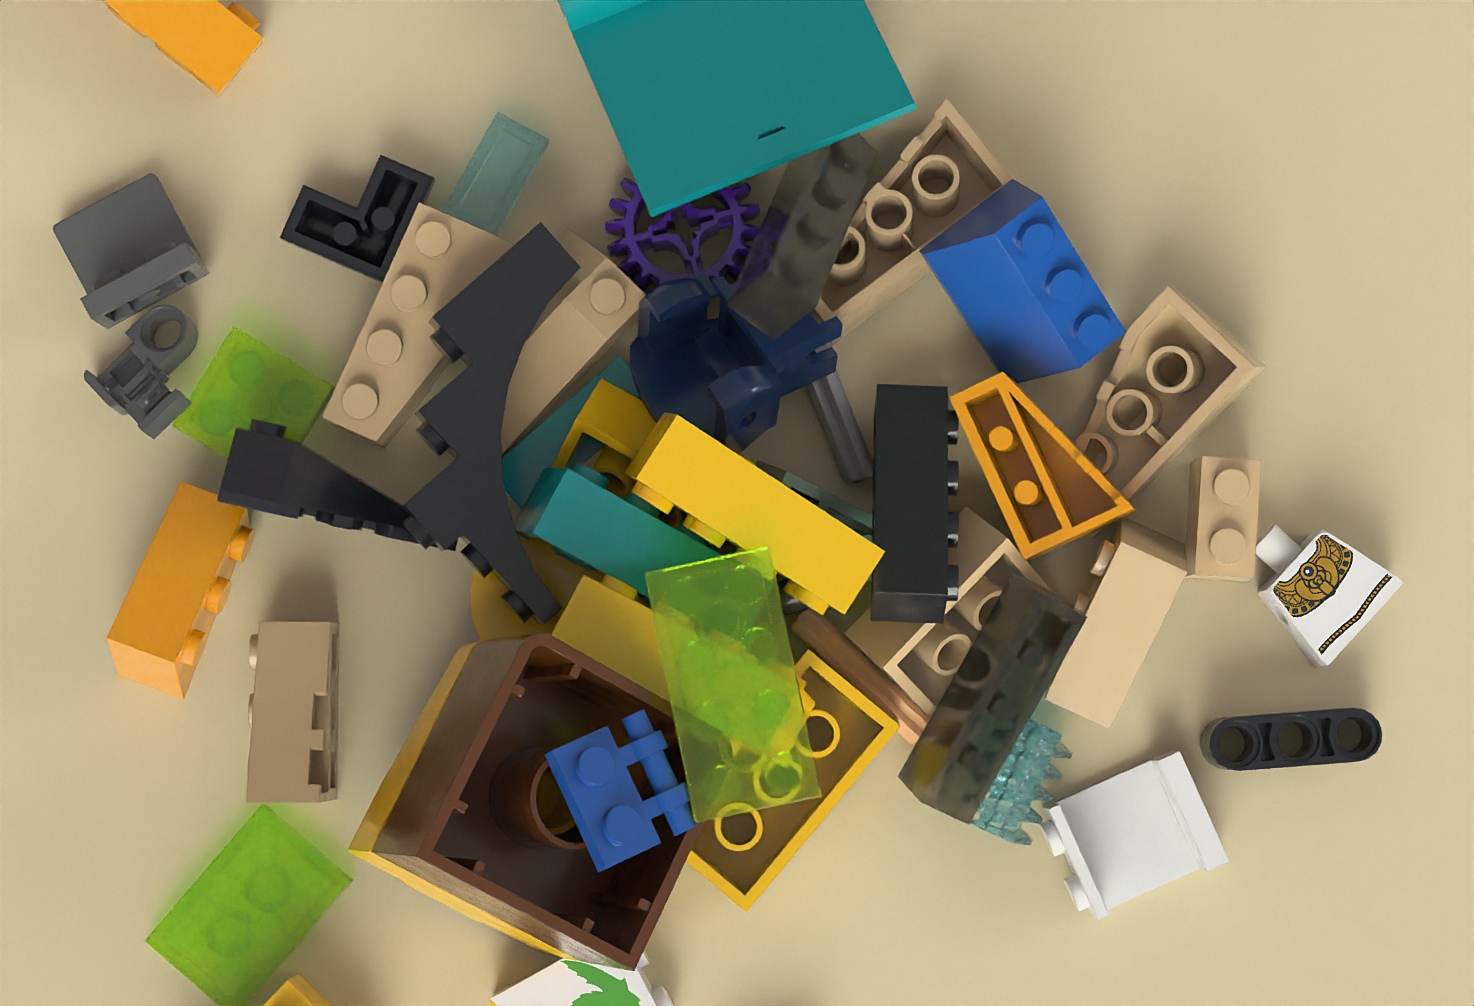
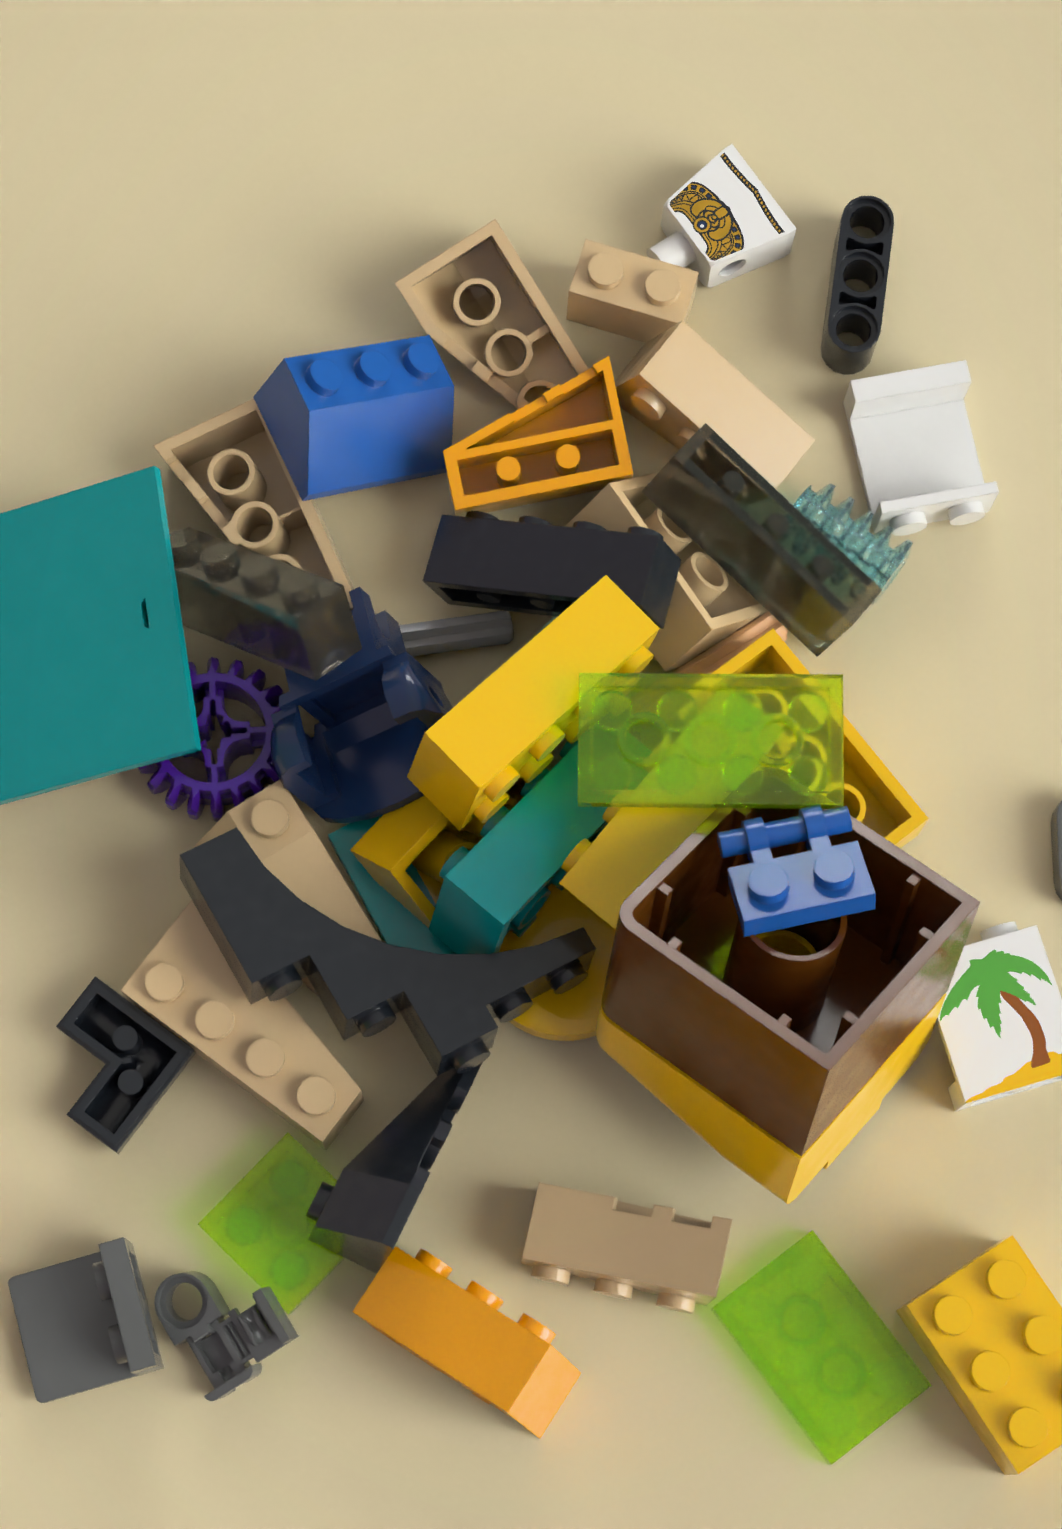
camera: 85 degrees left, 10 degrees down
(496, 174) = (104, 917): clear light blue tile -> none

